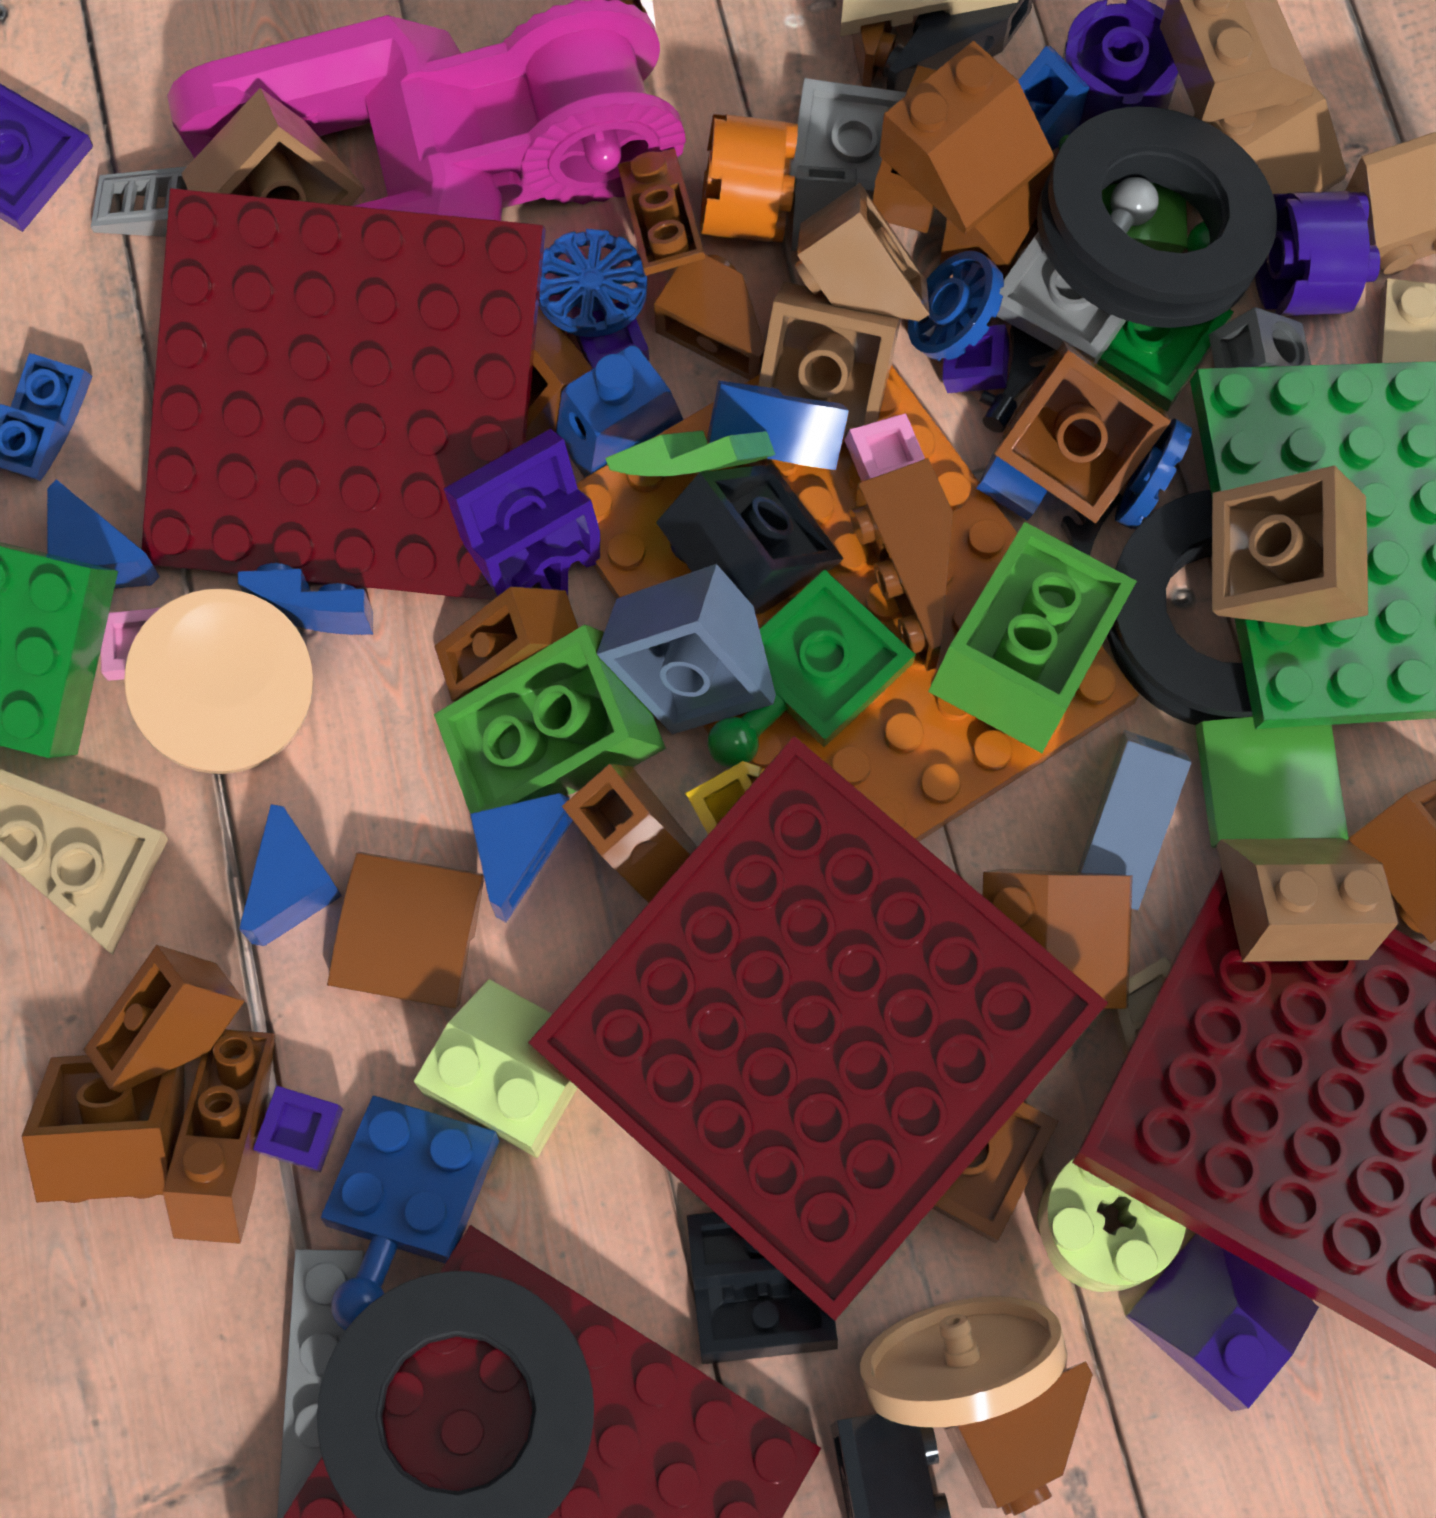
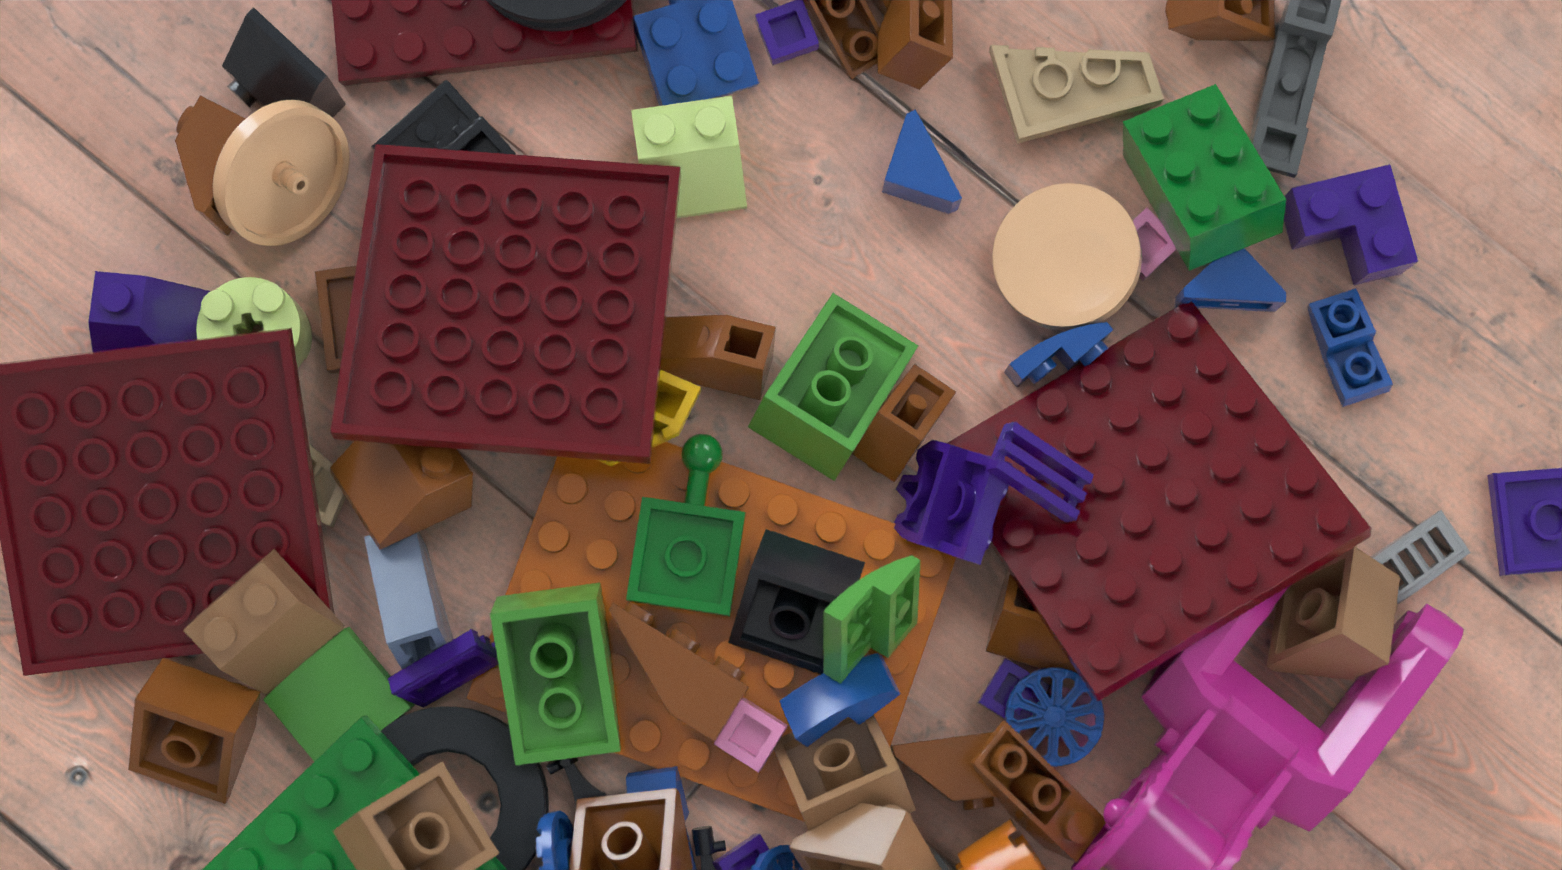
camera: 140 degrees right, 10 degrees up
(406, 930) = (820, 195): dark orange slope -> none
(410, 439) = (1071, 488): none -> dark purple tile
(515, 846) = (795, 292): blue slope -> none
(615, 407) = (960, 638): blue torso -> none
(689, 650) = (776, 490): sand blue slope -> none
(1141, 724) = (445, 669): none -> dark purple tile

